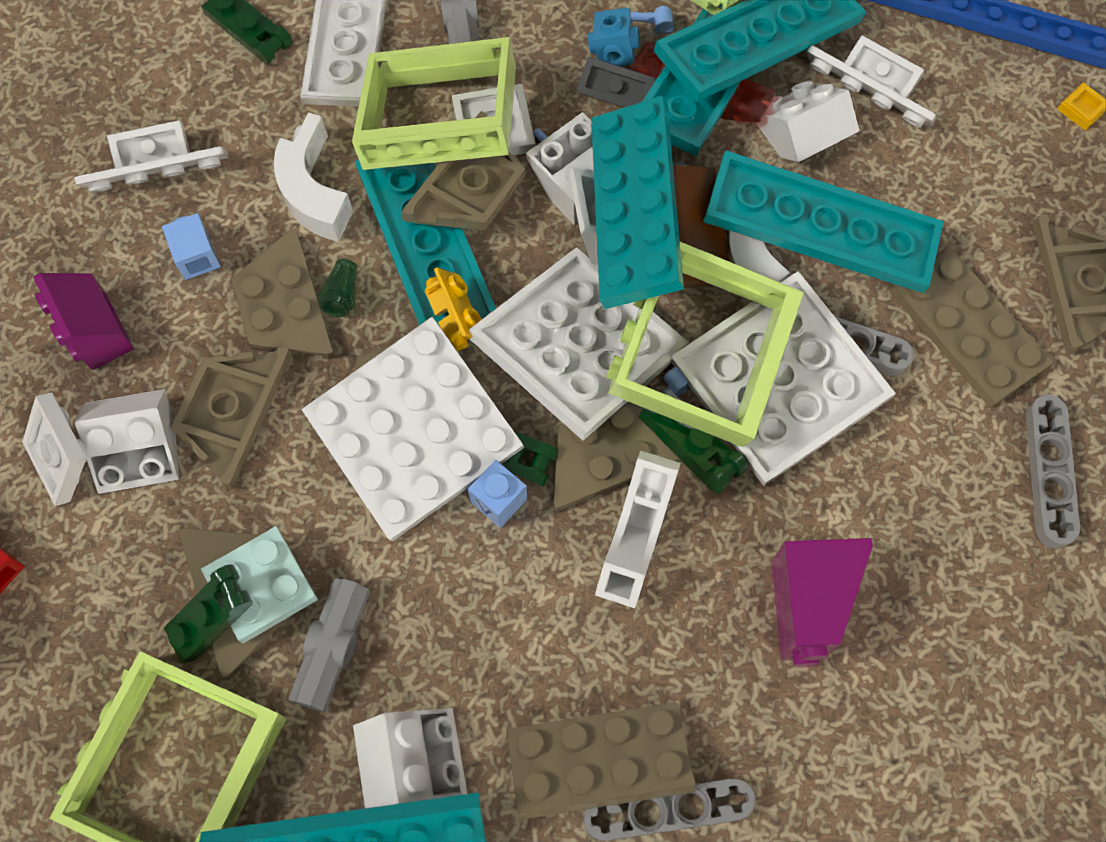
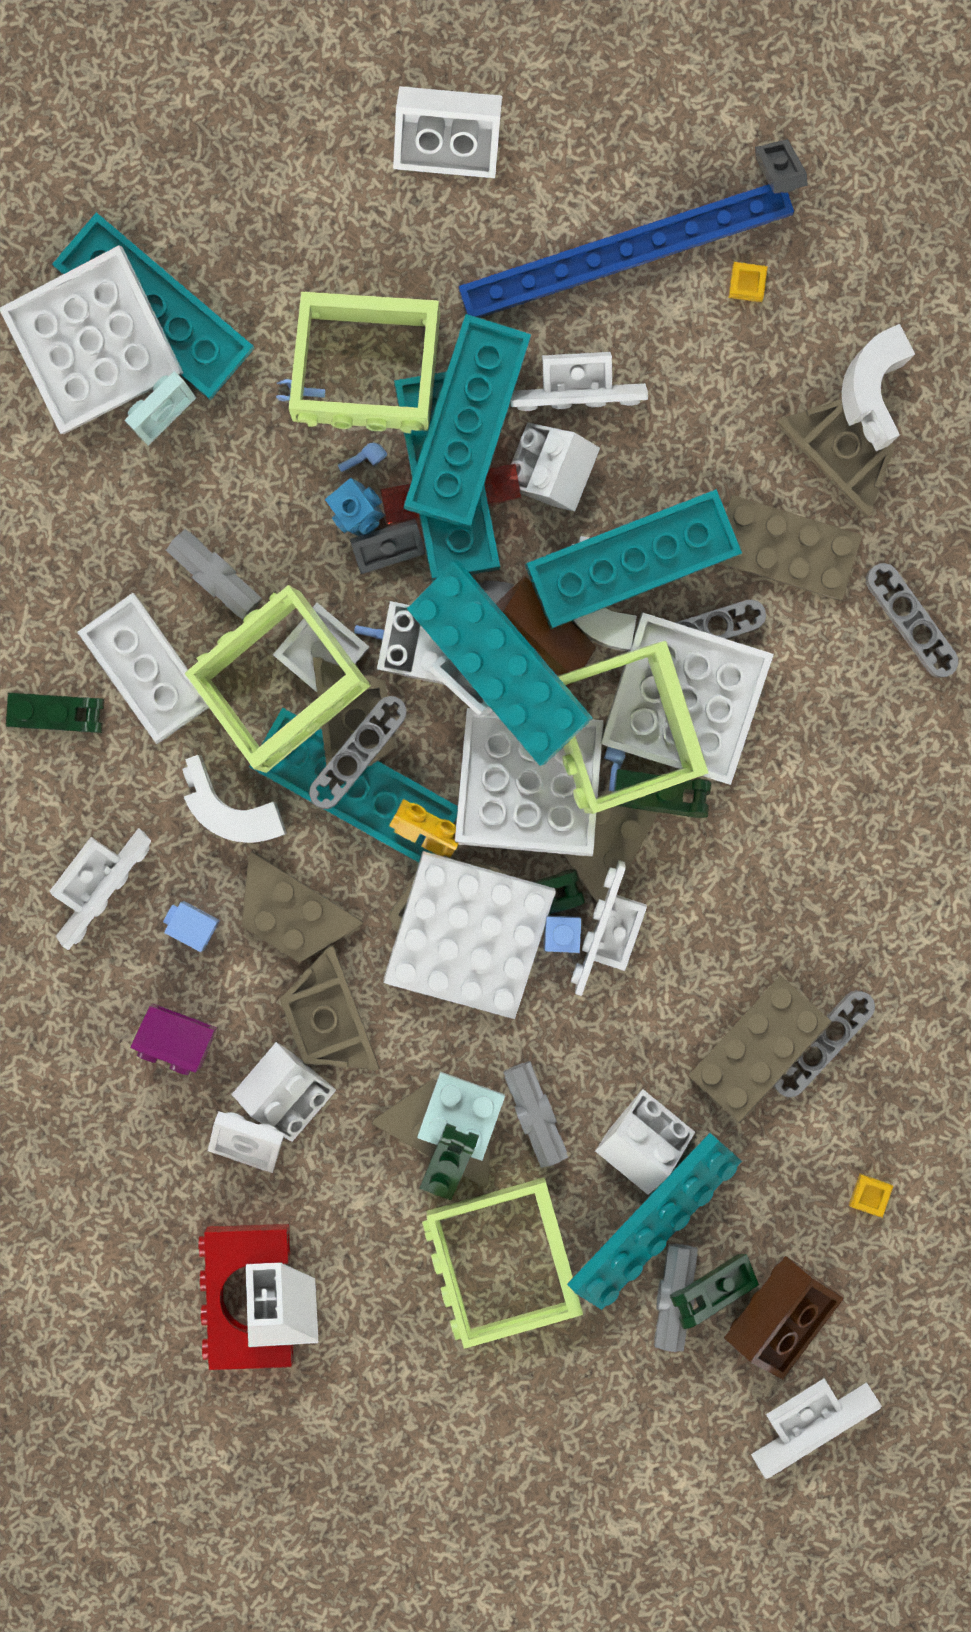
camera: 40 degrees left, 20 degrees up
(339, 289) = (325, 872): clear green cone -> none
(449, 192) = (361, 755): none -> light grey beam
(546, 528) = (614, 932): none -> white bracket
(637, 529) = (674, 889): white arch -> none
(815, 594) = (821, 842): magenta slope -> none

